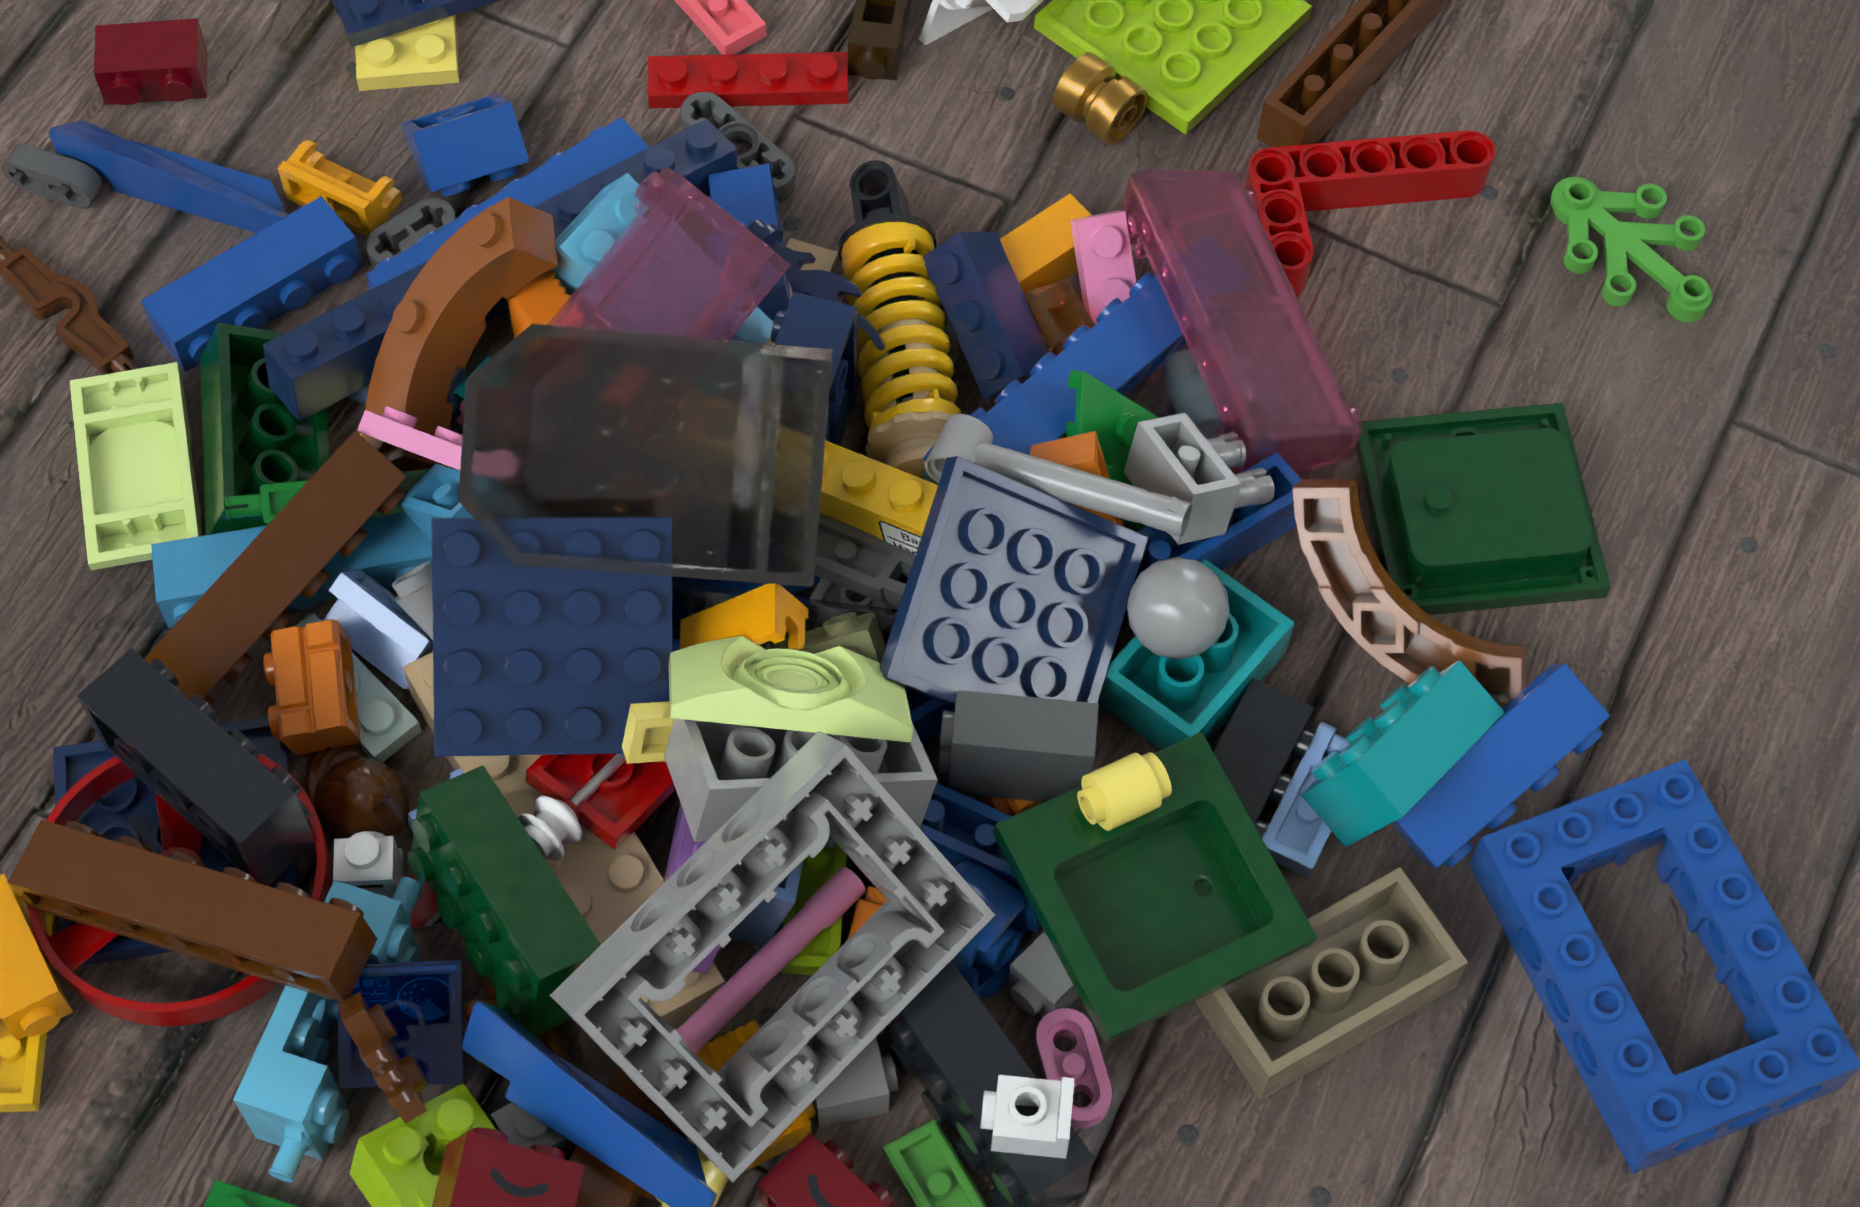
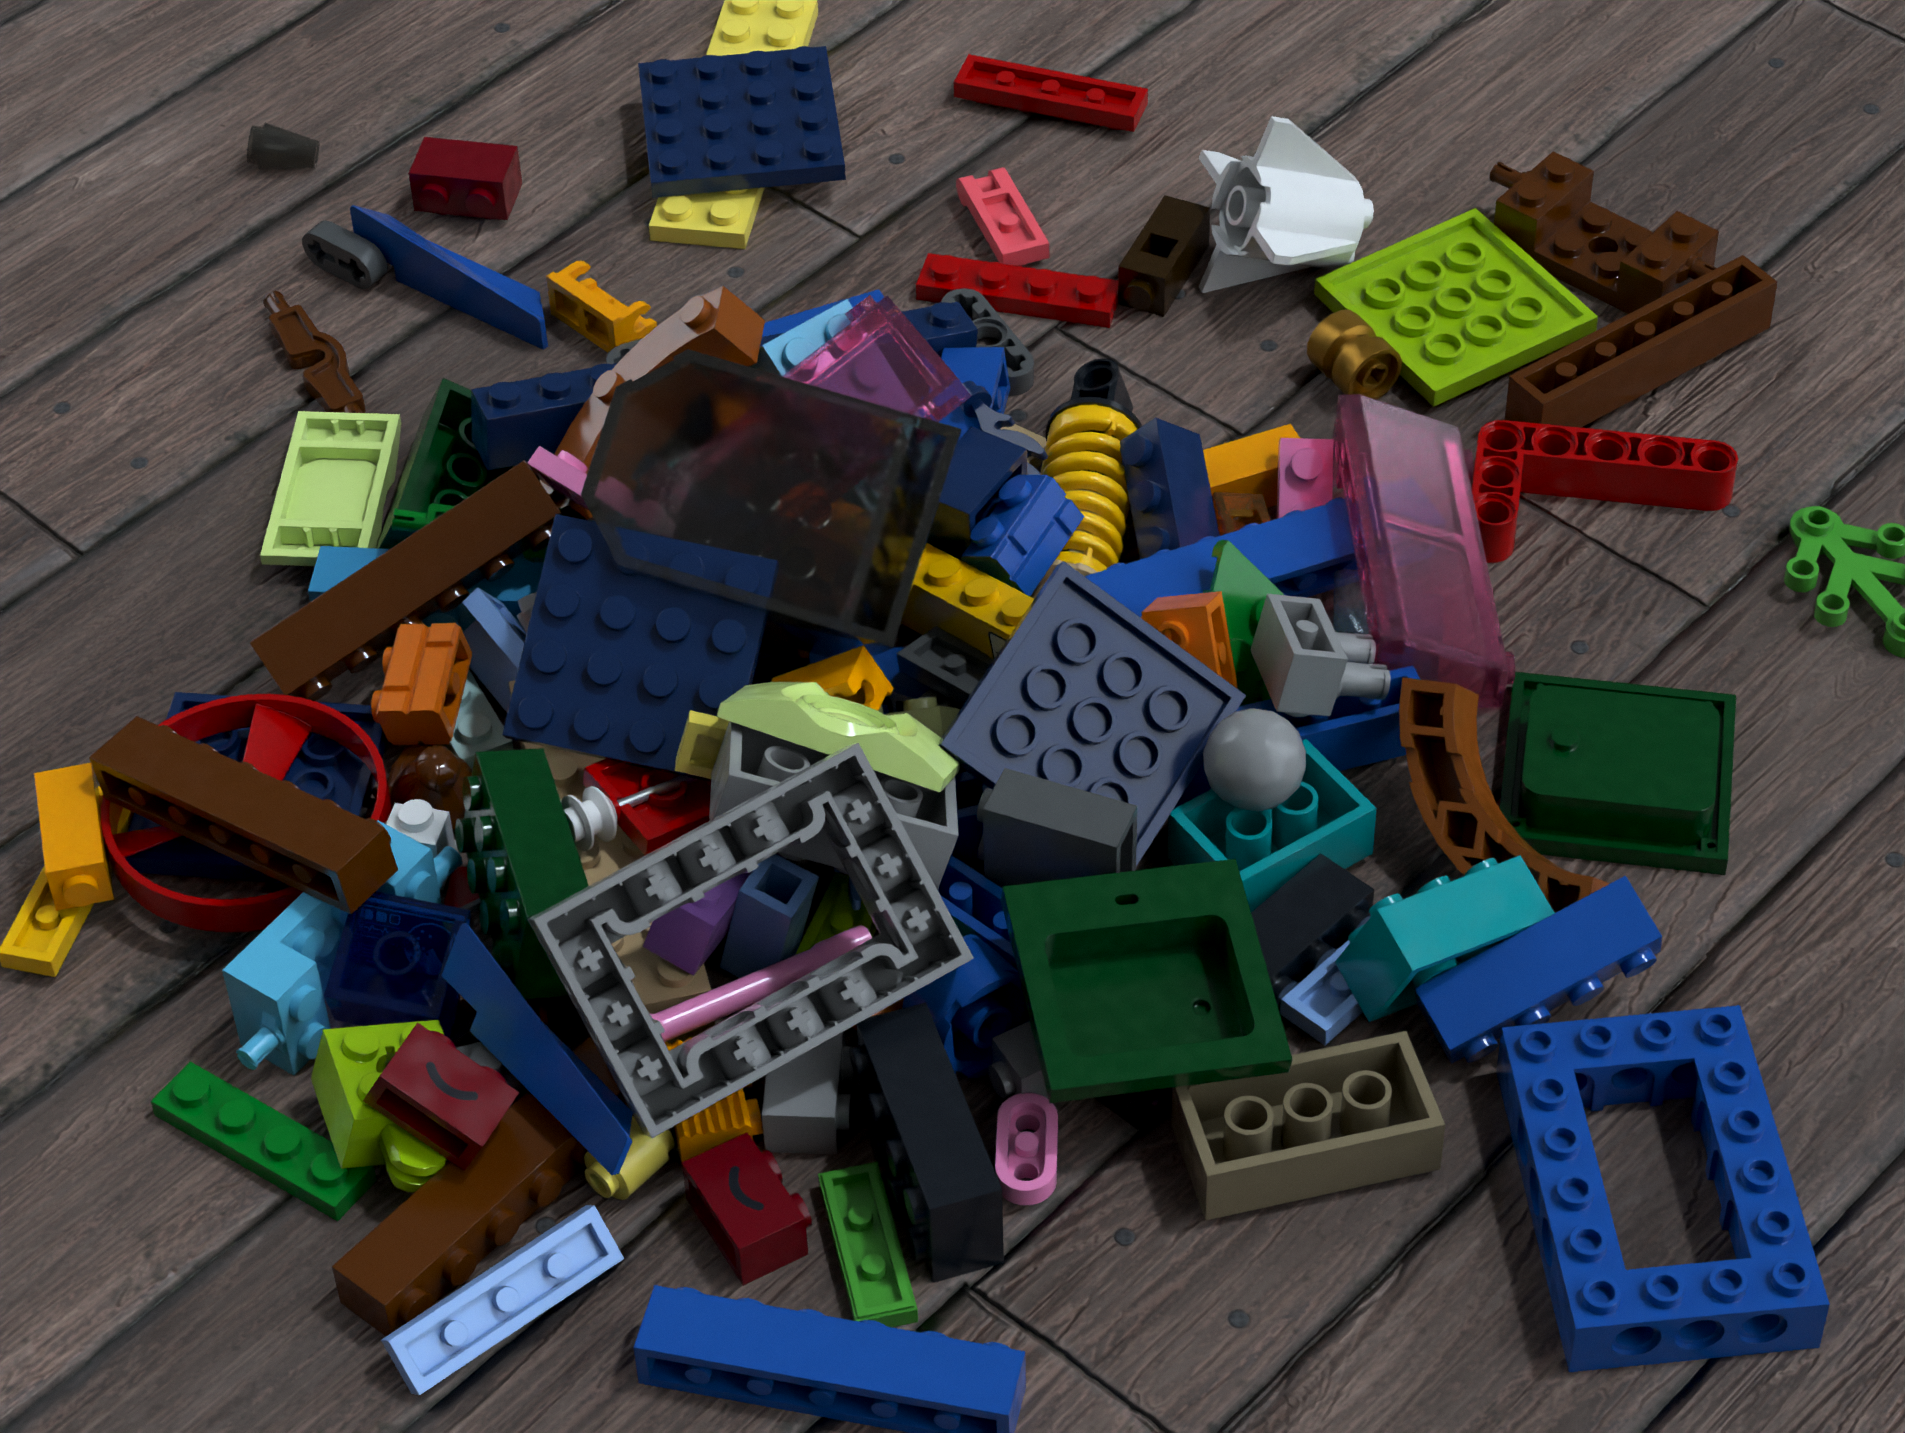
camera: 20 degrees right, 15 degrees down
(199, 766) = (289, 700): black brick -> none
(254, 280) = (505, 353): blue brick -> none
(398, 1077) = (362, 938): reddish brown hinge -> none
(466, 144) = (749, 278): blue slope -> none
(874, 397) = (1023, 532): none -> blue brick
(973, 441) = (1177, 621): light grey piece -> none
(1038, 1135) = (948, 1133): white brick -> none
(1124, 790) = (1134, 878): light yellow brick -> none

